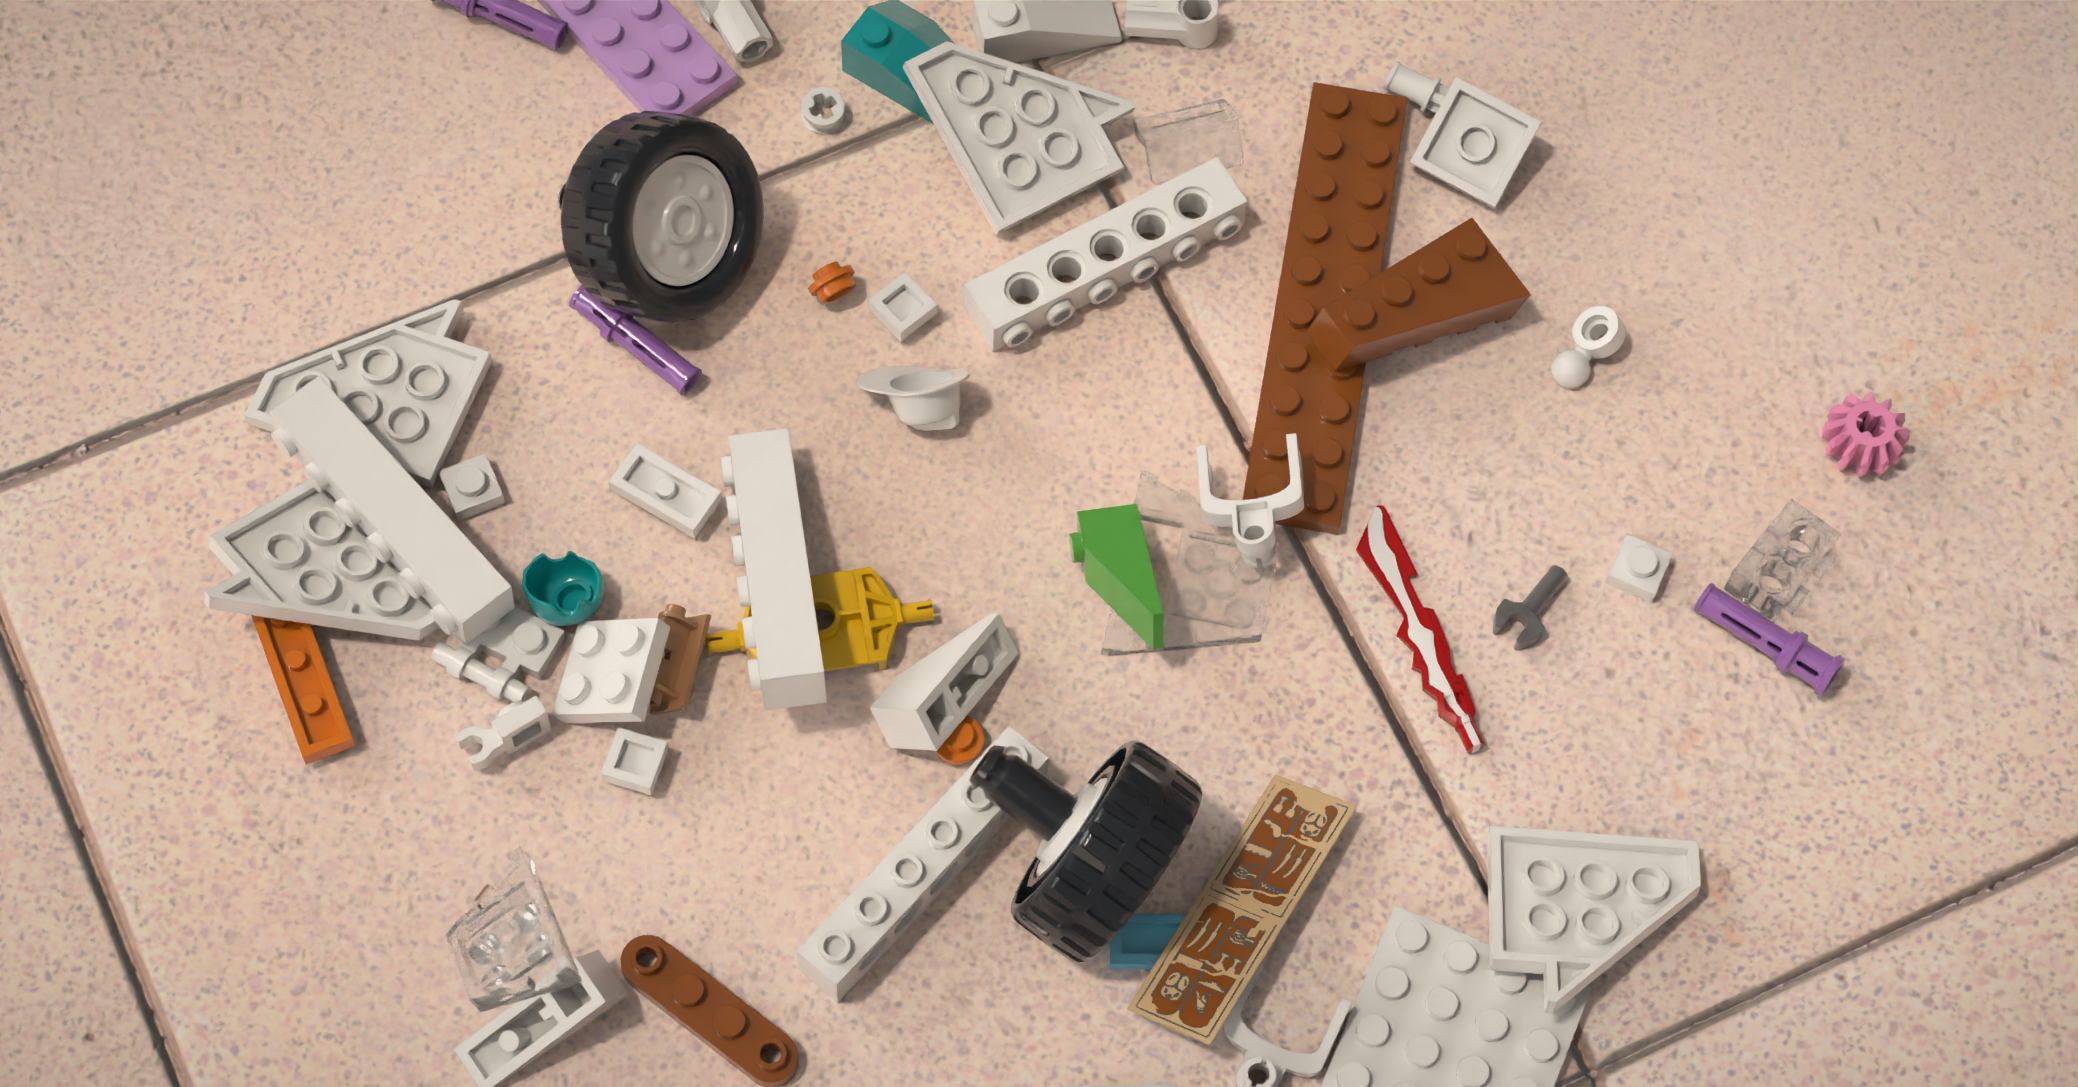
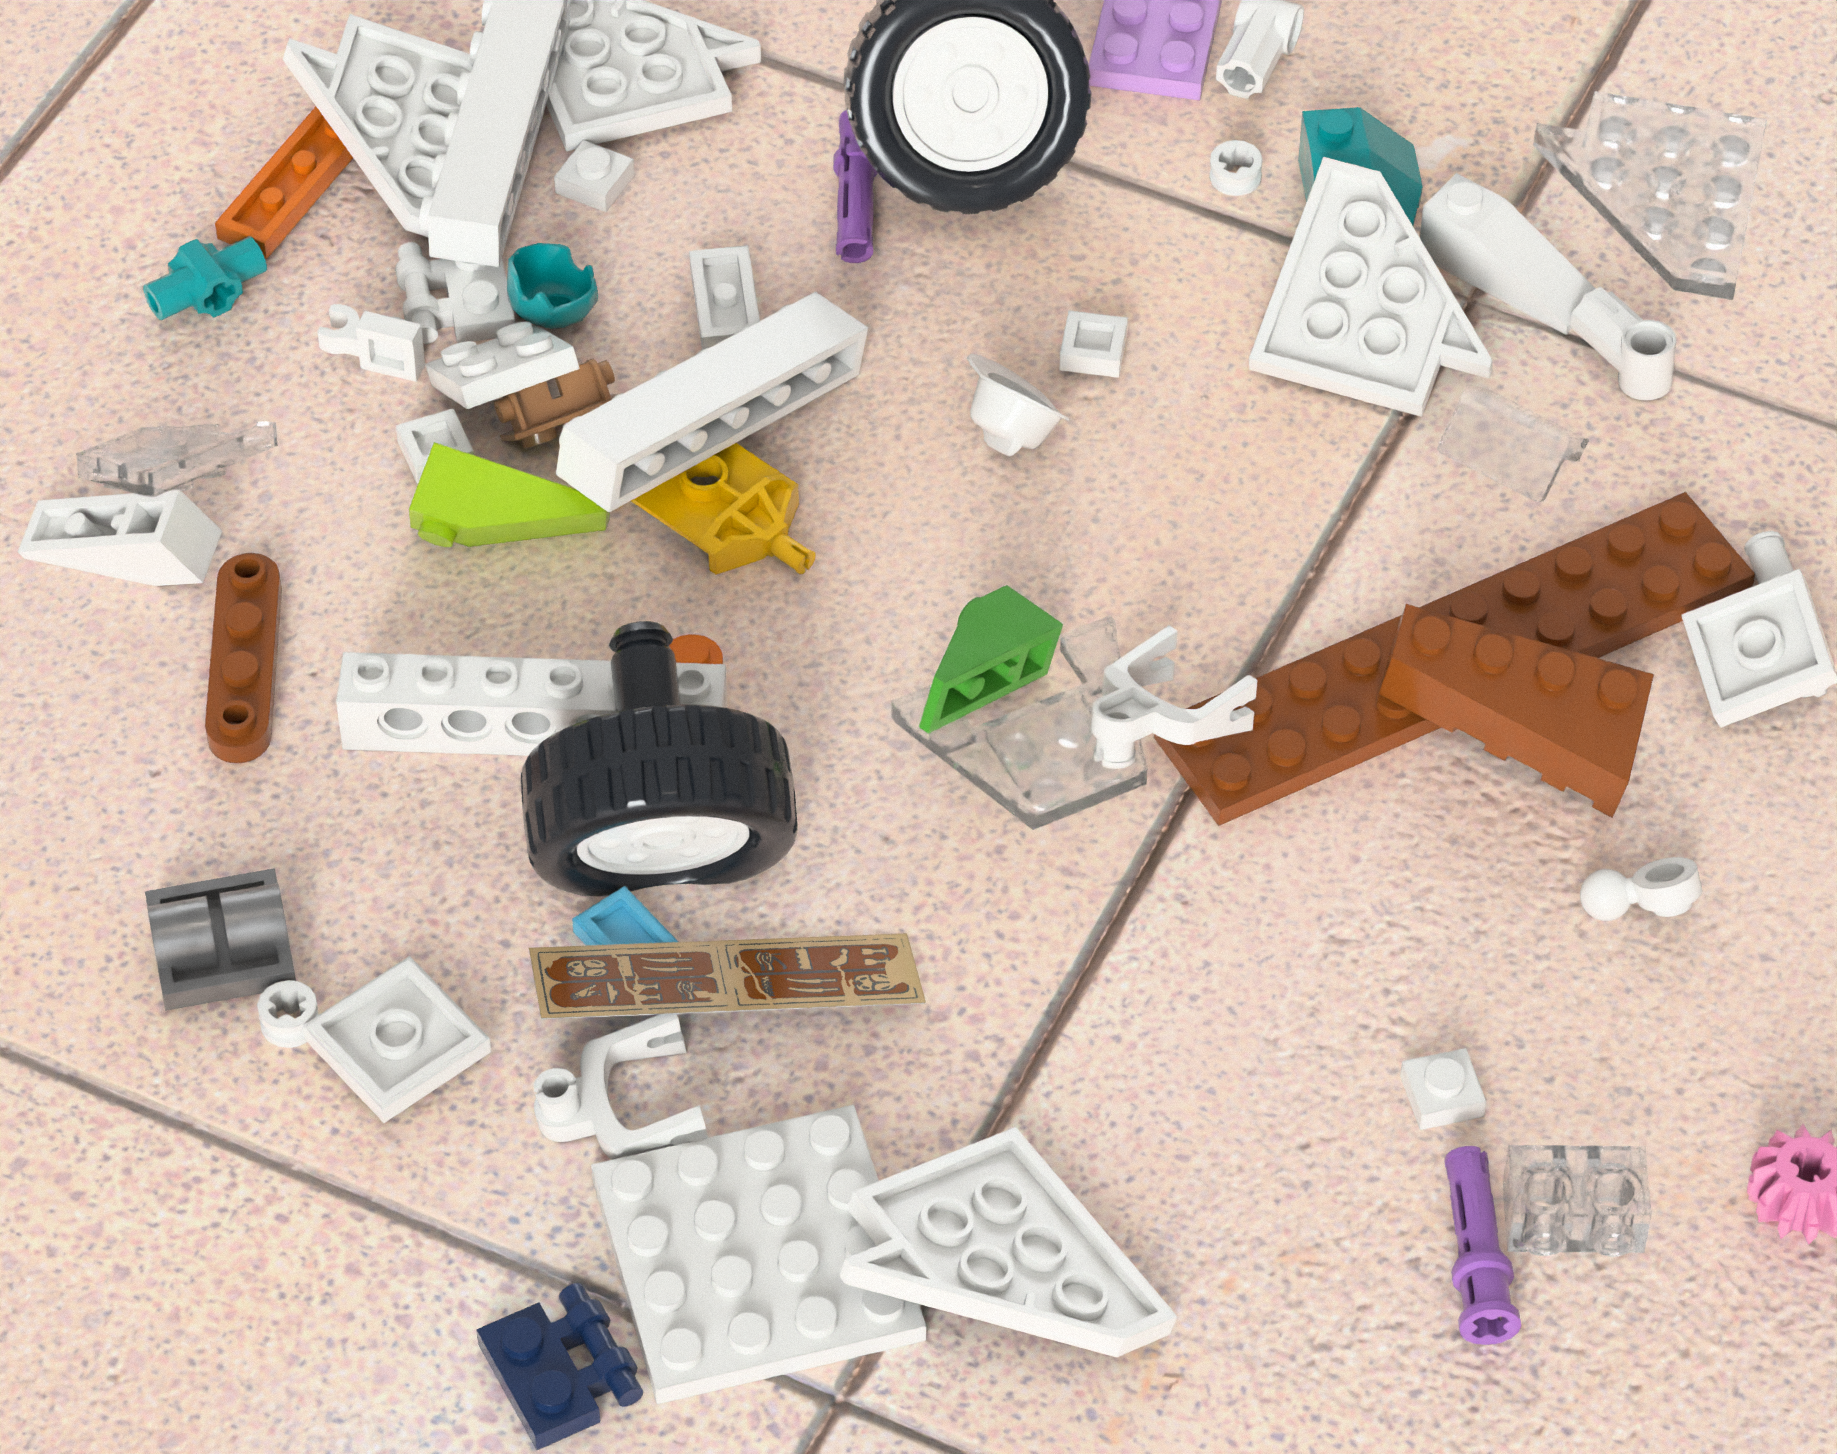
camera: 55 degrees right, 15 degrees down
(344, 799) = (205, 278): none -> teal axle
(724, 768) = (490, 503): none -> lime slope
(832, 282) = (1061, 279): orange plate -> none
(943, 687) = (736, 607): white slope -> none
(1201, 190) = (1314, 450): white brick -> none
(1420, 629) = (1180, 953): red sword -> none
(1528, 611) = (1292, 1025): flat silver bar -> none

